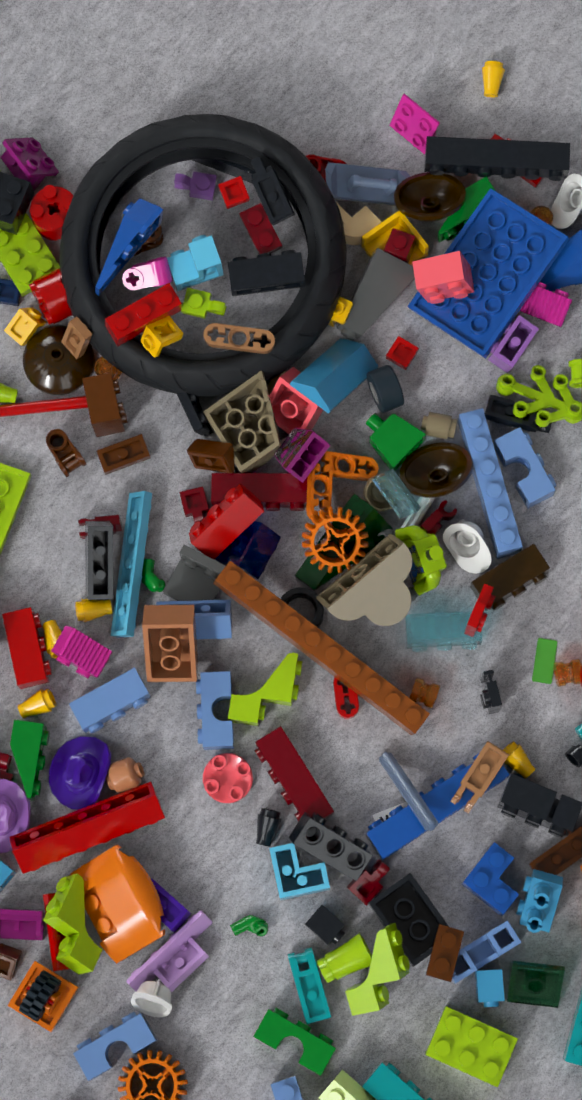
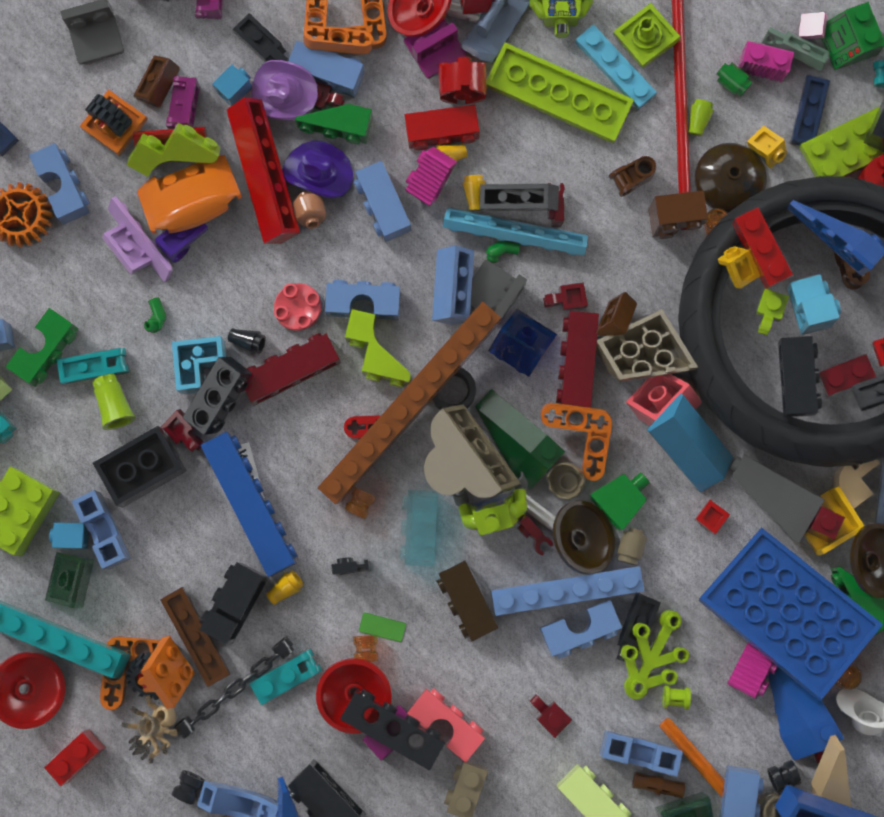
camera: 90 degrees right, 5 degrees up
(39, 703) = (388, 137): yellow cone -> none
(52, 295) = (796, 167): red brick -> none
(76, 337) = (748, 189): medium nougat plate -> none
(123, 454) = (627, 232): reddish brown plate -> none
(151, 273) = (804, 255): piece -> none
(152, 999) = (98, 220): white piece -> none
(170, 643) = (429, 257): nougat brick -> none
(195, 414) = (666, 300): black plate -> none
(225, 521) = (547, 322): red brick -> none
(258, 333) = (720, 361): medium nougat beam -> none
(301, 452) = (608, 399): magenta torso -> none
(326, 926) = (146, 386): black brick -> none
(341, 312) = (758, 457): yellow bracket -> none
(344, 559) = (509, 410): orange gear -> none
(385, 388) = (673, 494): black wheel -> none
(386, 965) = (92, 436): lime arch -> none
(396, 493) = (561, 494): clear light blue plate -> none
(408, 791) = (261, 475): sand blue axle -> none
(443, 277) = (786, 563): coral brick -> none
(444, 953) = (99, 493): reddish brown plate -> none
(467, 546) = (504, 561): white piece -> none
(478, 616) = (421, 558): red plate -> none
(481, 774) = (269, 547): medium nougat hinge -> none
(485, 880) = (167, 543): blue brick -> none
(513, 343) = (712, 631): medium lavender brick -> none
(540, 901) = (141, 593): dark azure brick -> none

